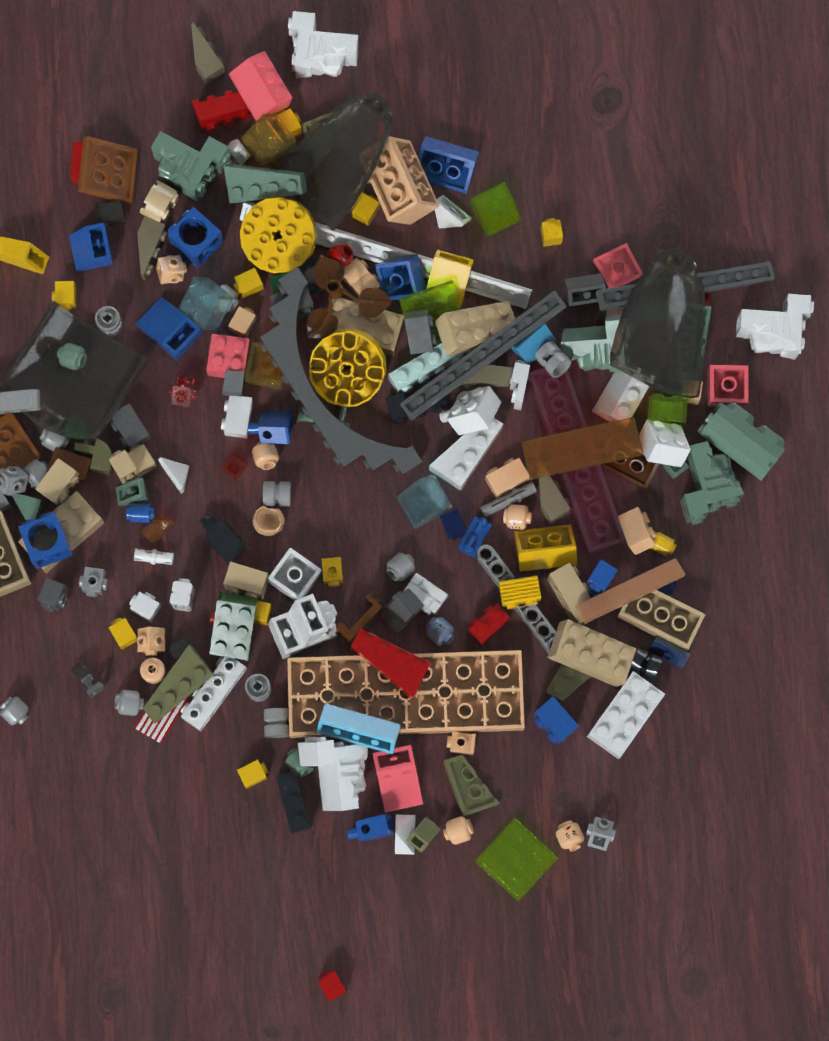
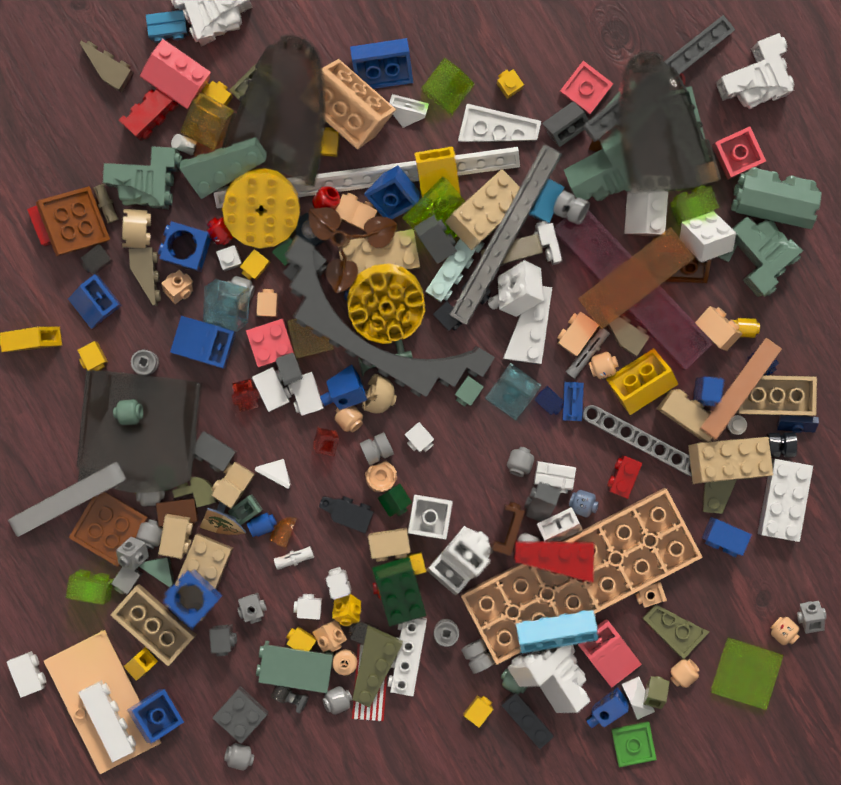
camera: 20 degrees left, 10 degrees up
(34, 673) = (240, 715): none -> dark grey brick
(104, 493) = (220, 522): none -> shield
(105, 653) = (294, 668): none -> sand green panel
(144, 170) = (105, 203): none -> dark tan pin
(178, 623) = (347, 610): none -> yellow brick
(209, 398) = (271, 389): none -> white brick
(228, 266) = (229, 258): none -> white brick
(231, 240) = (218, 231): none -> red head
(270, 547) = (395, 501): none -> dark green brick
(275, 44) = (167, 25): none -> dark azure brick
(303, 447) = (379, 395): none -> tan cylinder
(319, 502) = (419, 438): none -> white brick
(332, 571) = (461, 495): yellow brick -> none
(380, 875) = (633, 744): none -> bright green tile
(384, 482) = (468, 391): none -> sand green brick
(409, 638) = (560, 526): none -> white brick
(519, 592) = (640, 436): yellow brick -> none
(520, 263) = (491, 125): none -> white wing
(613, 627) = (737, 425): none -> white plate

